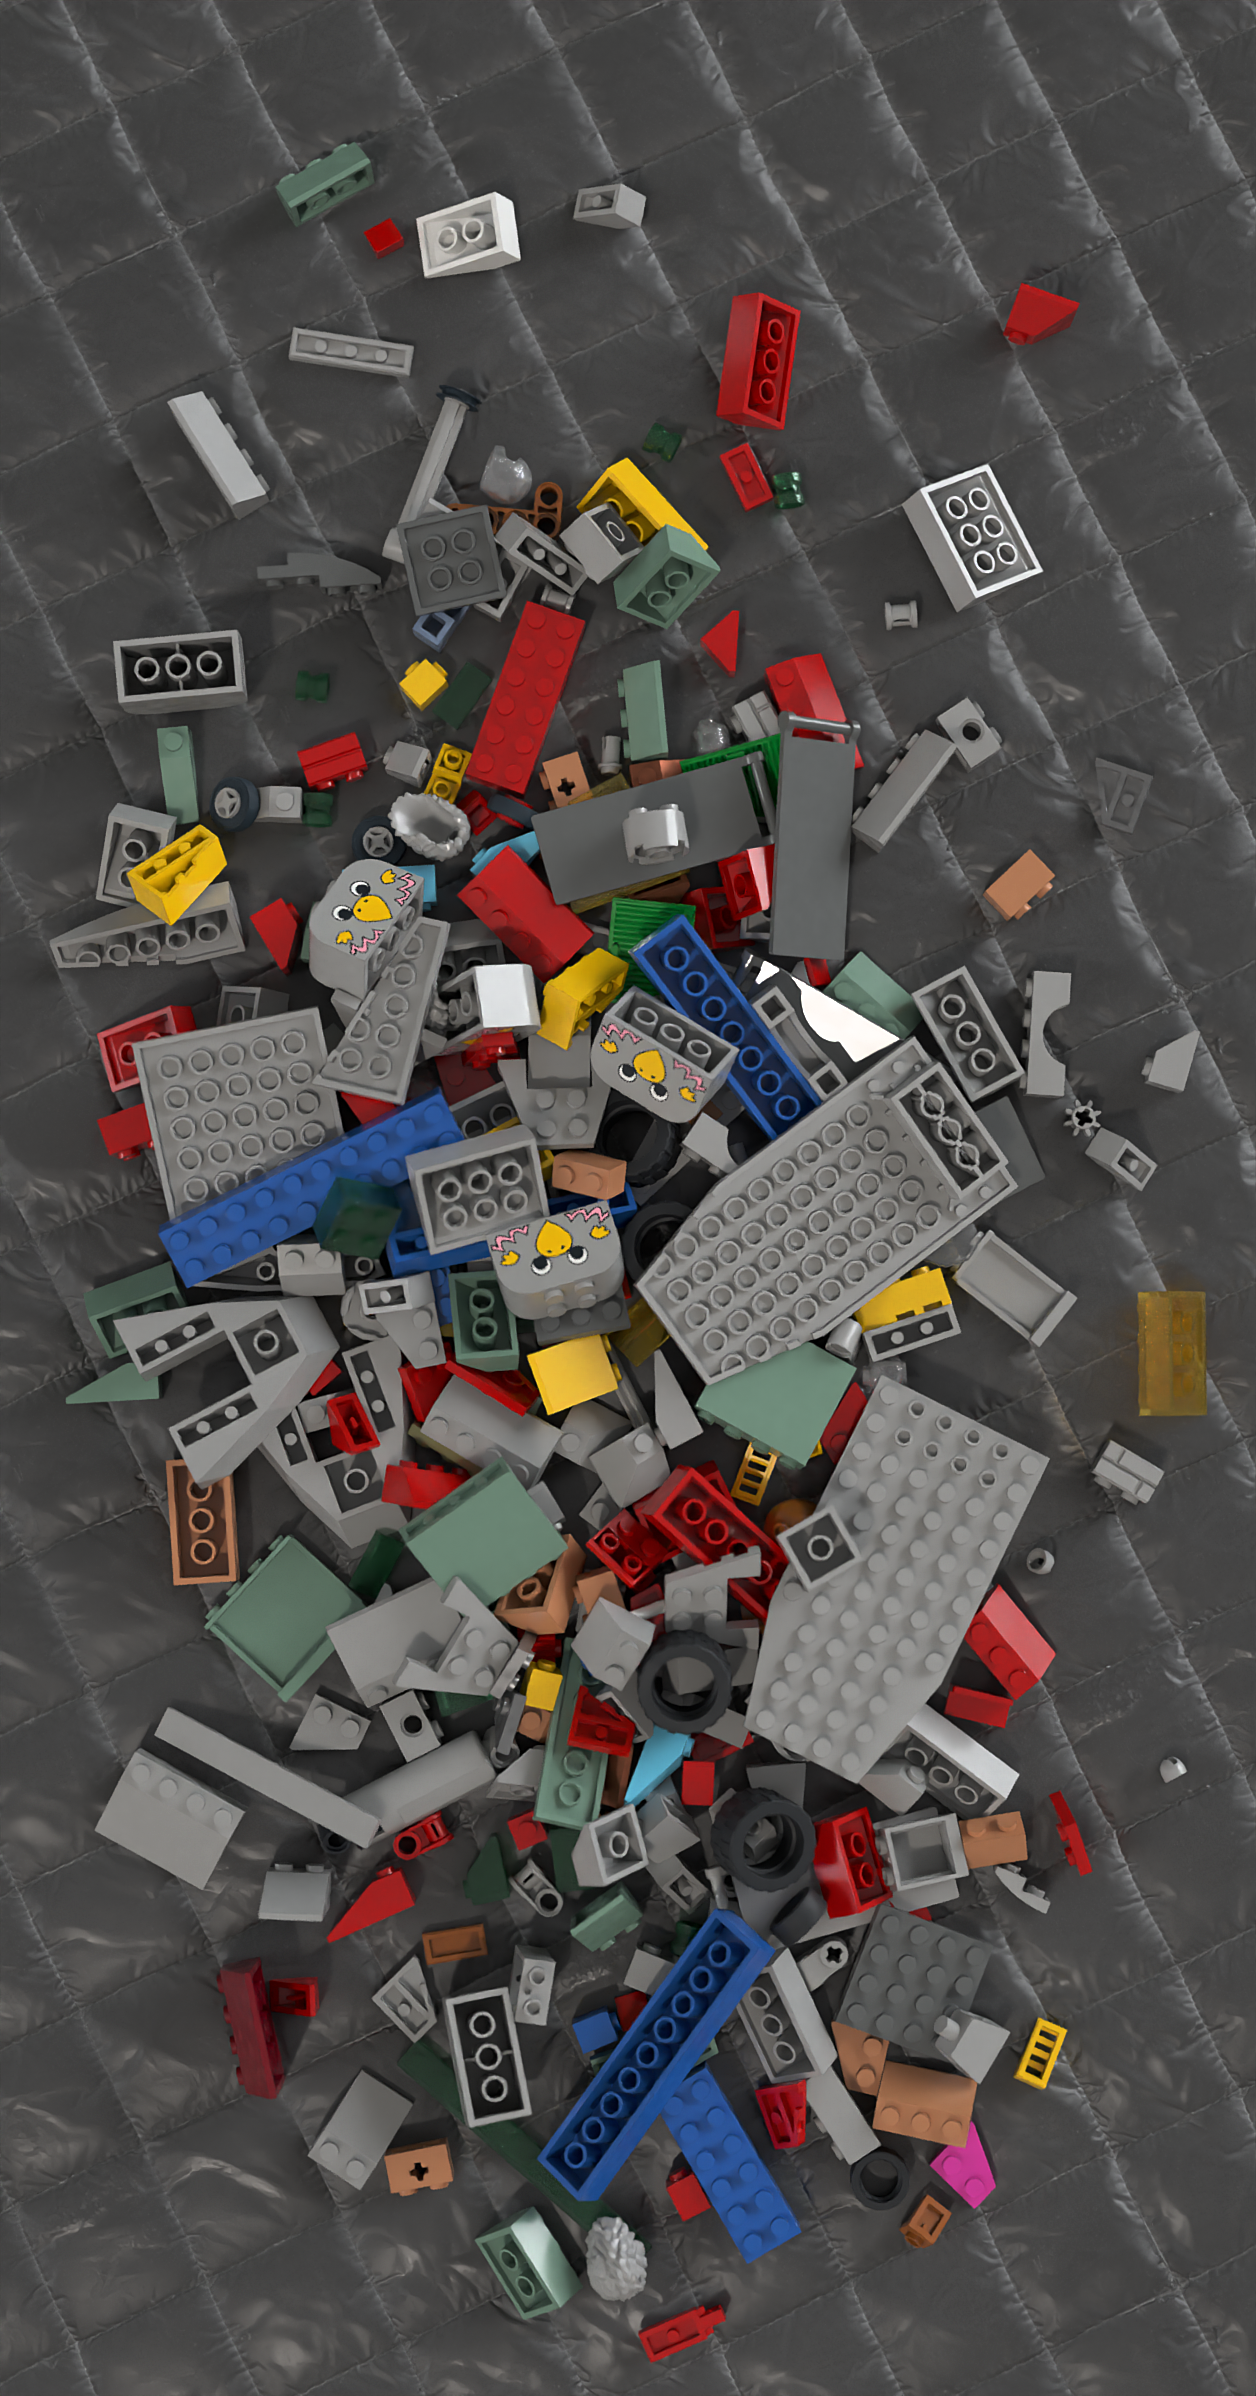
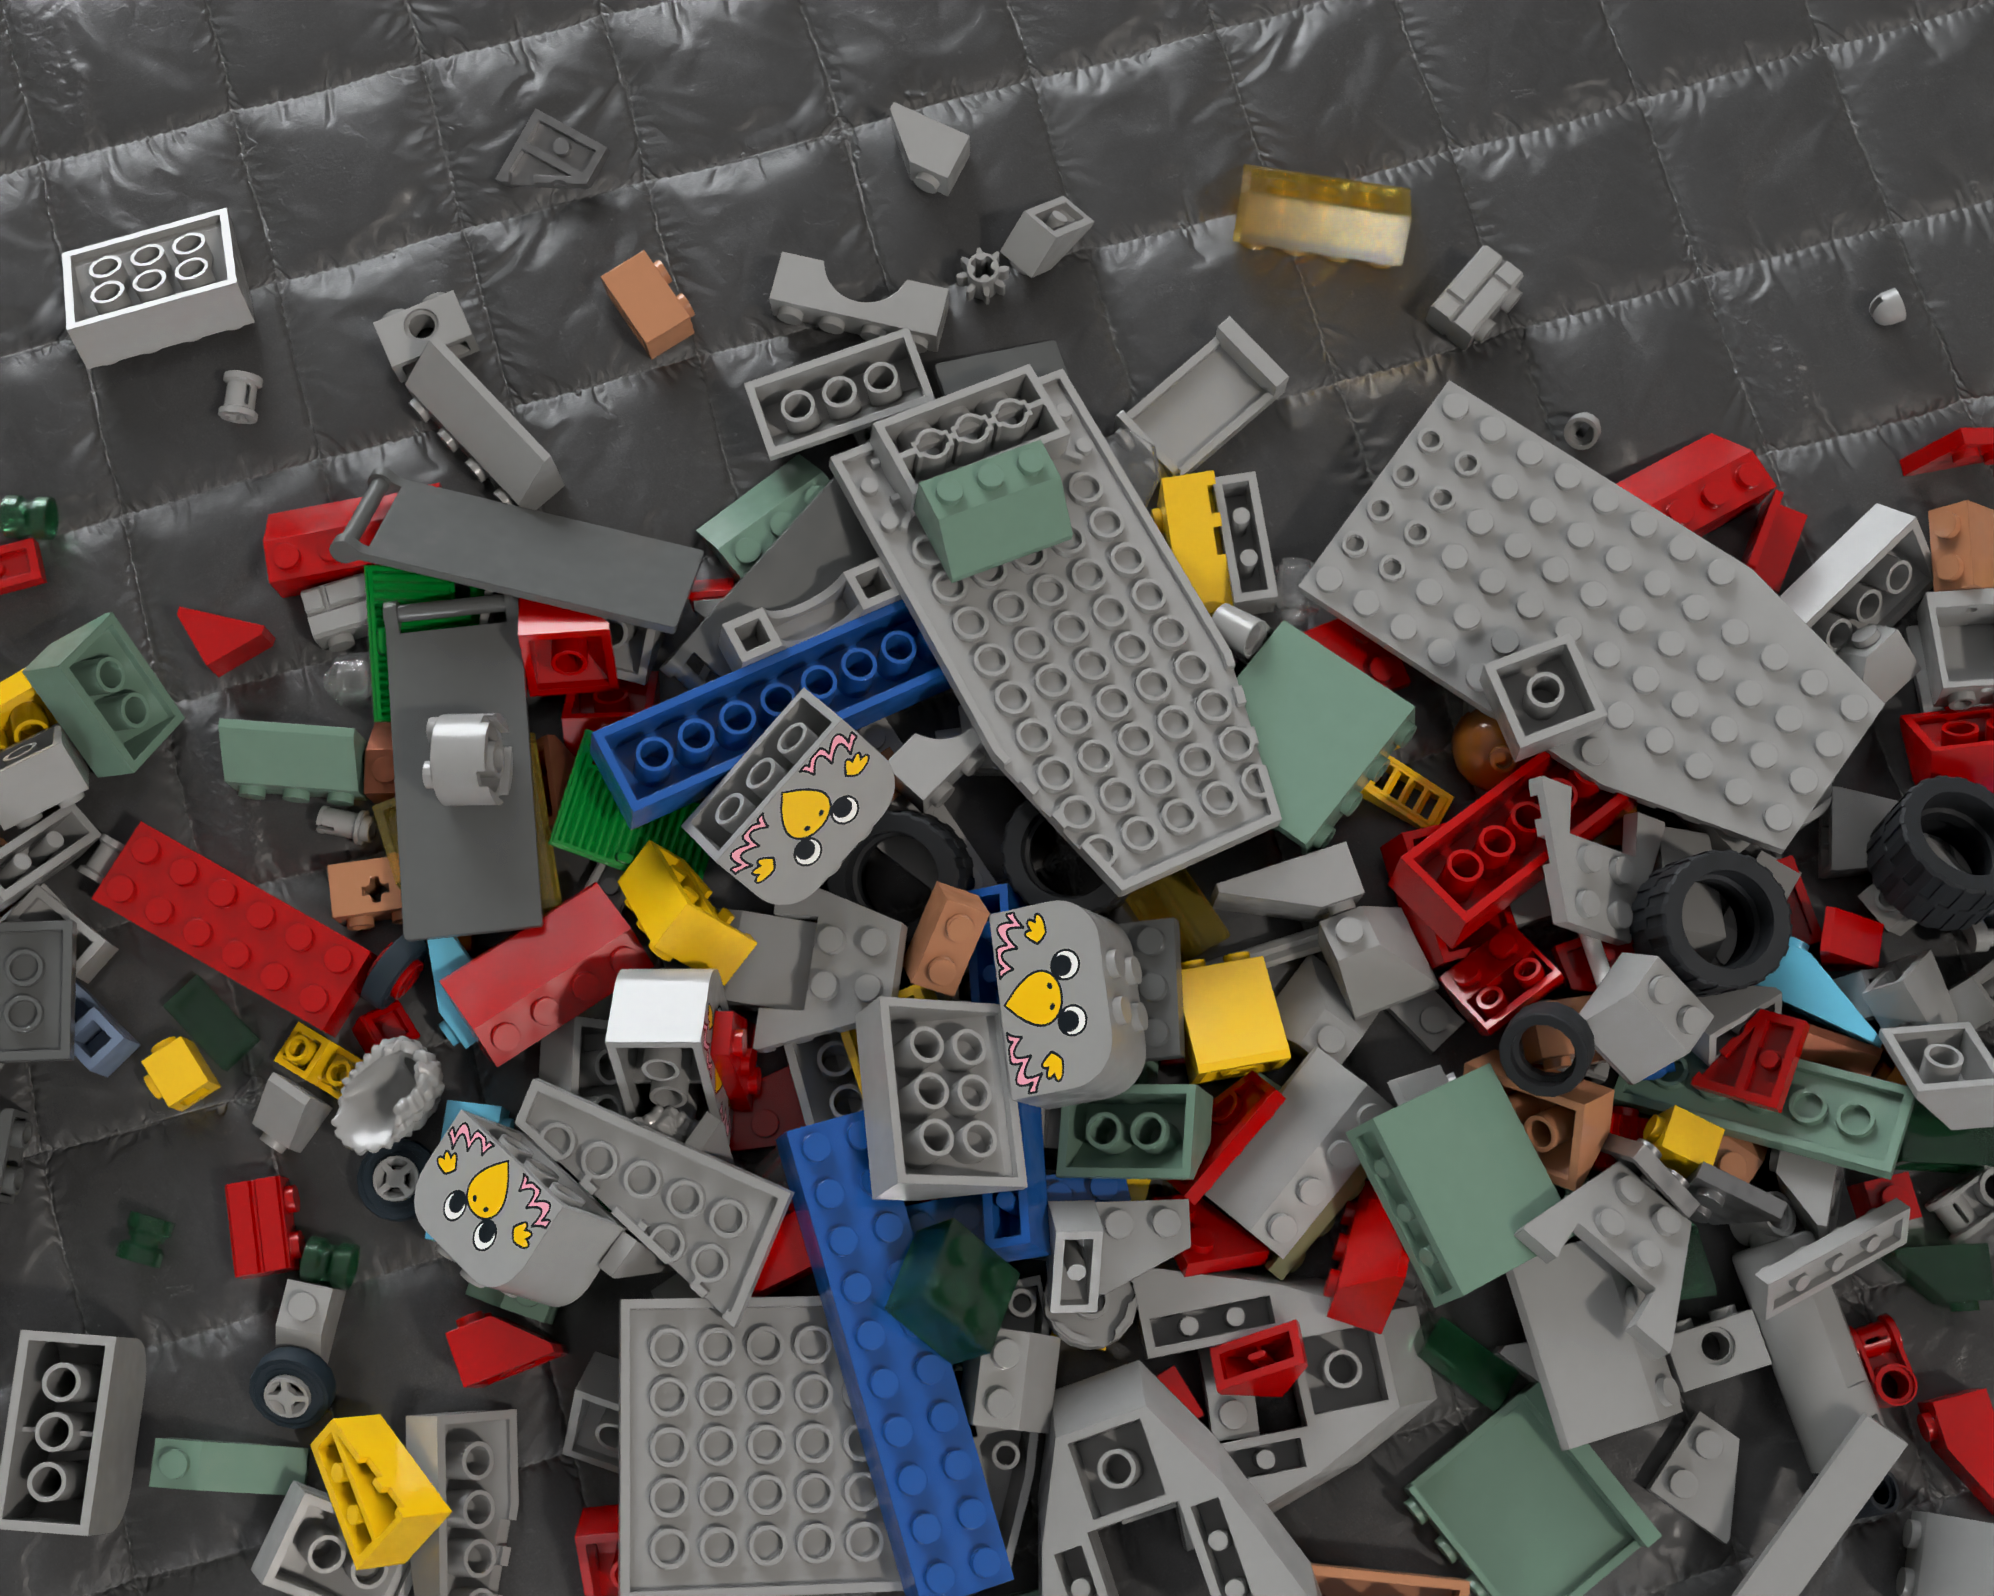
camera: 80 degrees left, 10 degrees down
(477, 1788) = (1830, 1258): none -> light grey plate
(561, 1576) = (1531, 1078): none -> black tyre
(890, 1156) = (994, 510): none -> sand green slope

